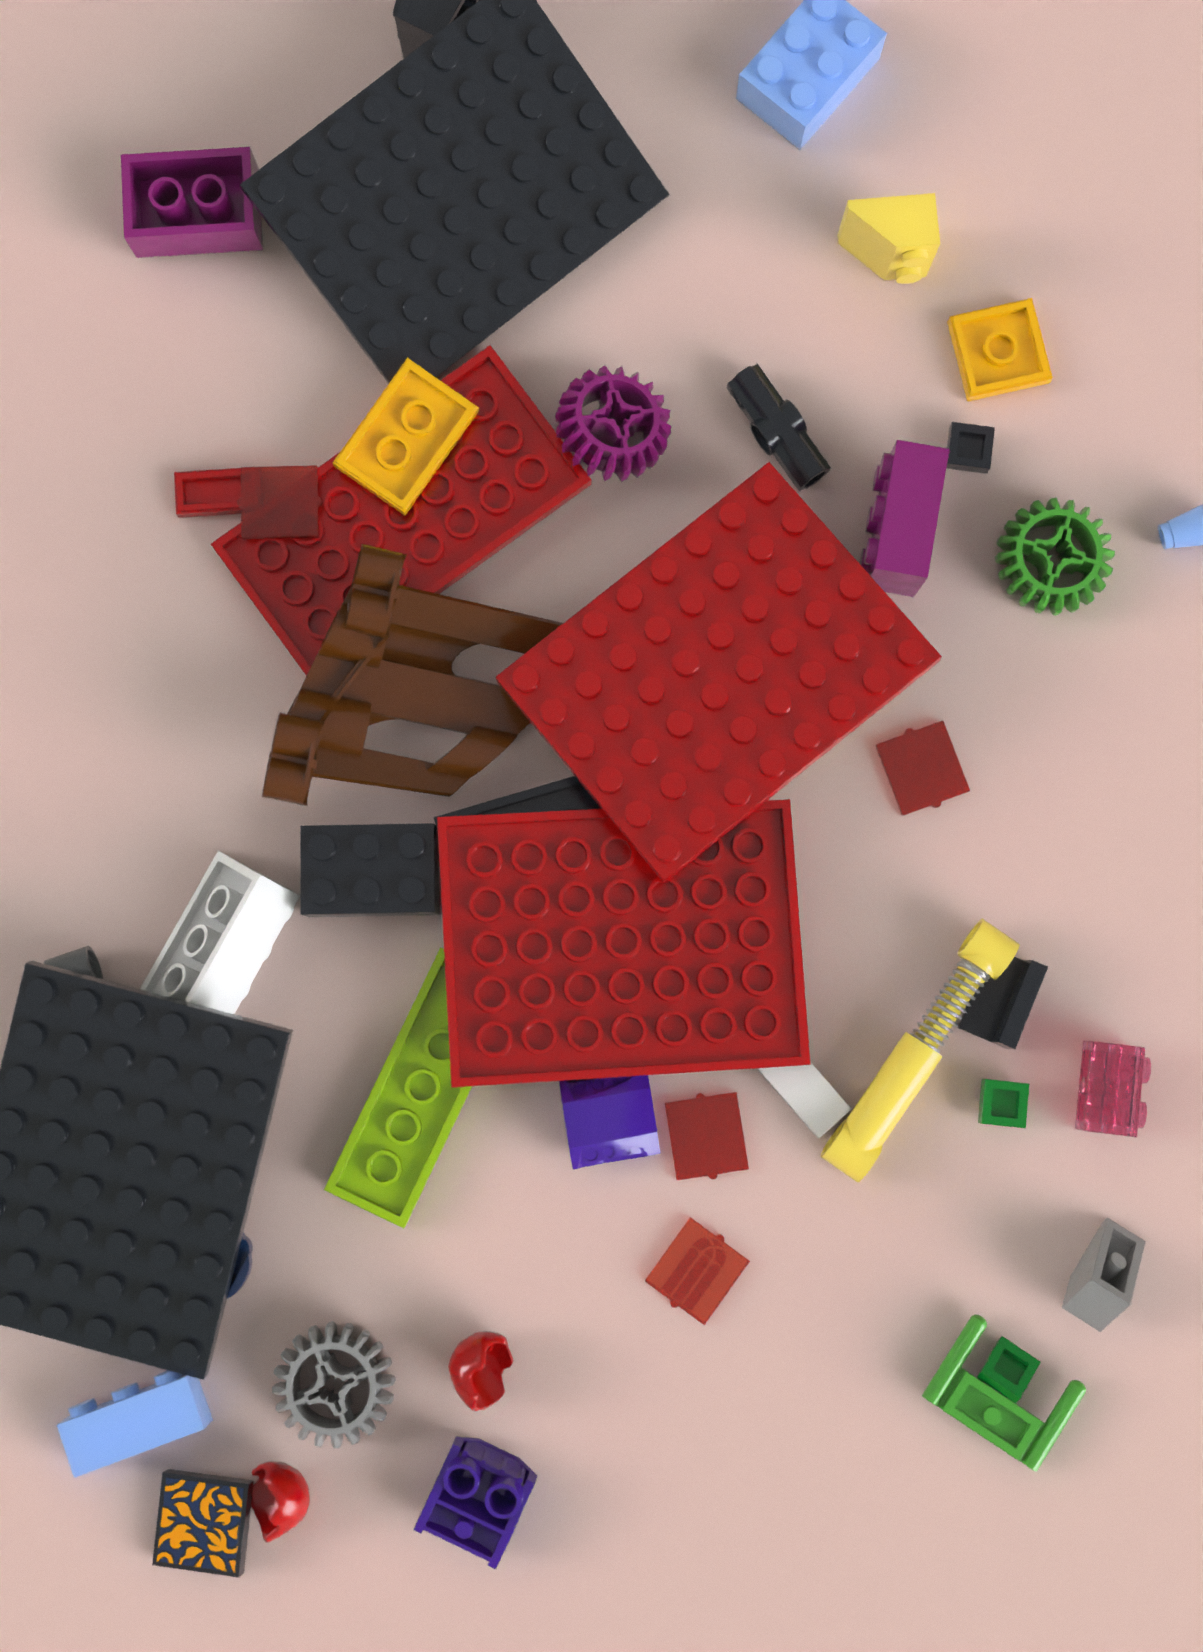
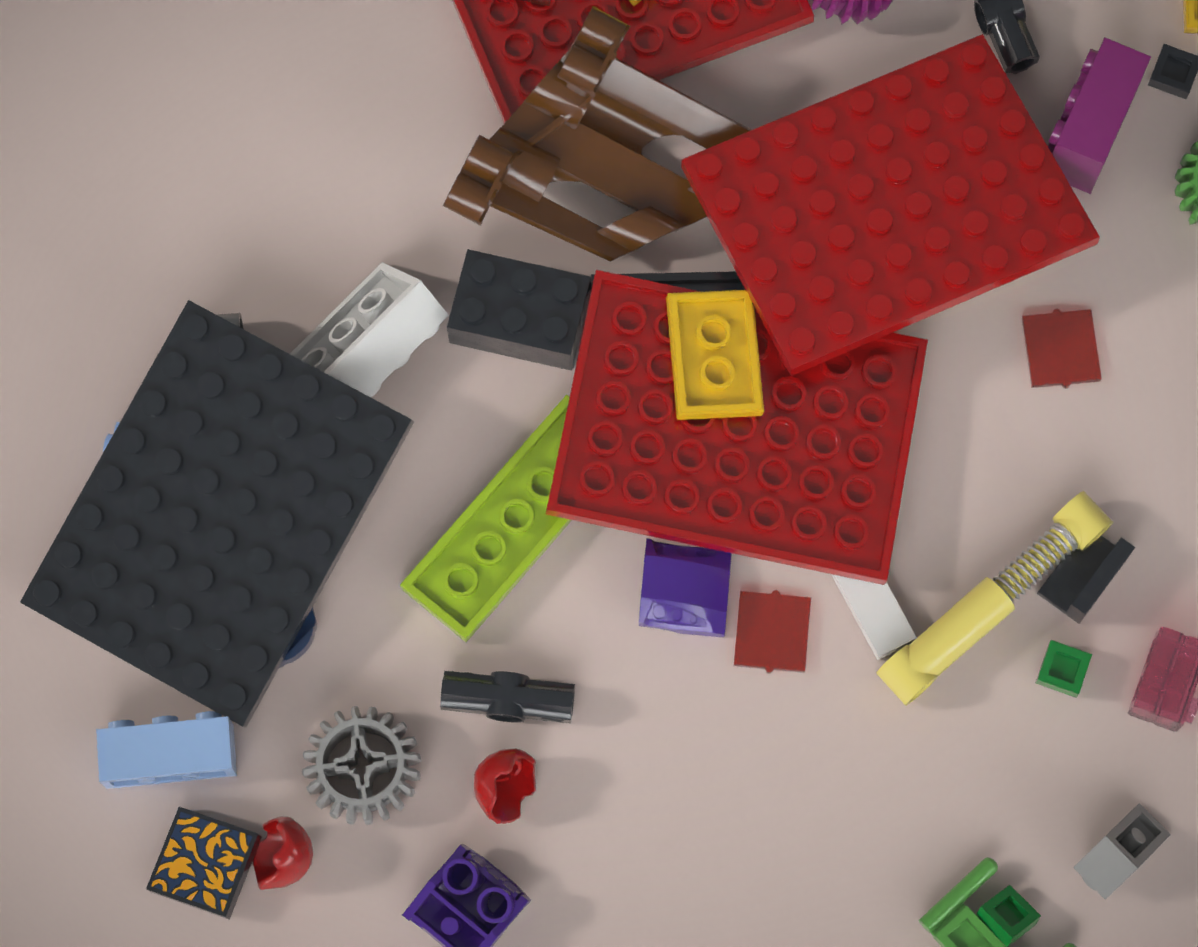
camera: 15 degrees right, 10 degrees down
(461, 1275) = (507, 696): none -> black piece
(580, 876) = (714, 355): none -> yellow tile
(697, 1270) = (731, 753): clear red piece -> none

